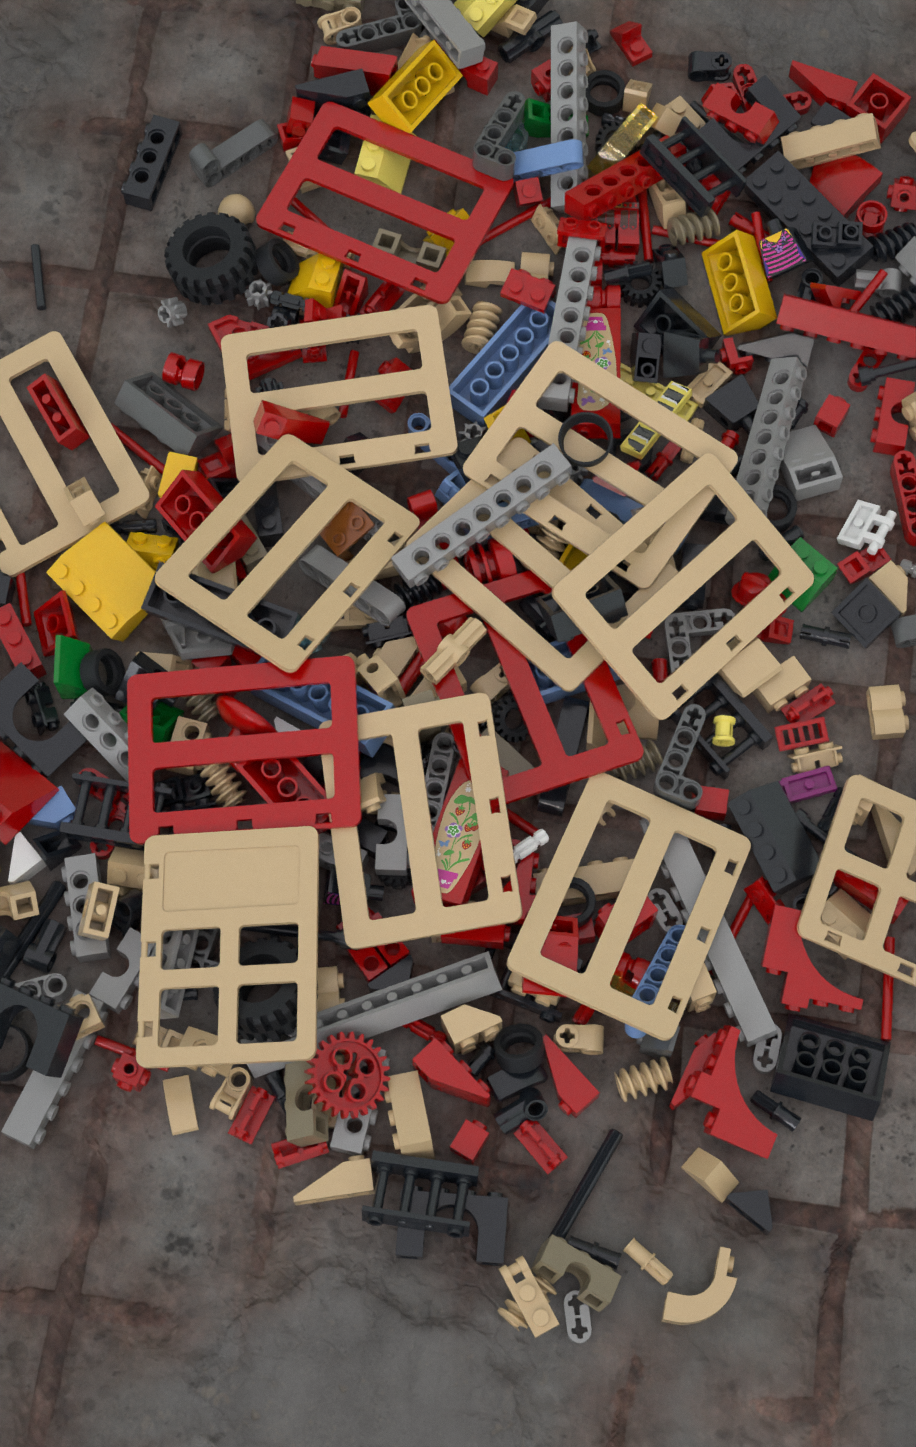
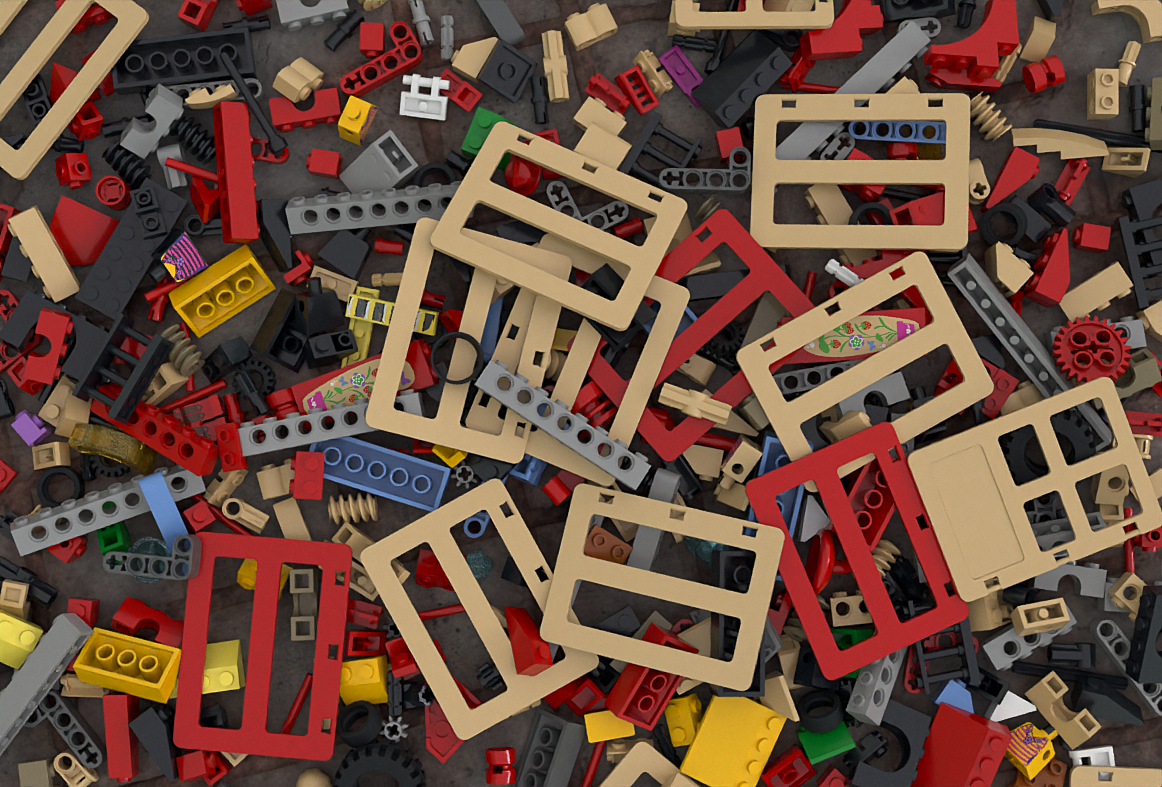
camera: 115 degrees left, 15 degrees up
(135, 637) = (778, 696): none -> tan slope
(344, 969) = (1003, 387): none -> red hinge
(380, 416) = (479, 564): none -> clear light blue gear
(458, 112) = (135, 615): none -> red arch
(515, 236) = (248, 515): none -> tan piece
(540, 1212) = (1126, 161): none -> tan slope
(584, 1151) = (1066, 143): none -> tan slope
(623, 1216) = (1103, 94): none -> tan brick
(669, 85) = (31, 428): none -> medium lavender brick
(669, 1159) = (1039, 75): none -> red wheel
(696, 1129) = (1006, 64): none -> tan axle
(724, 731) = (666, 152): light yellow bush -> none
(856, 663) = (555, 66): none -> tan piece
(868, 457) = (357, 119): none -> yellow torso

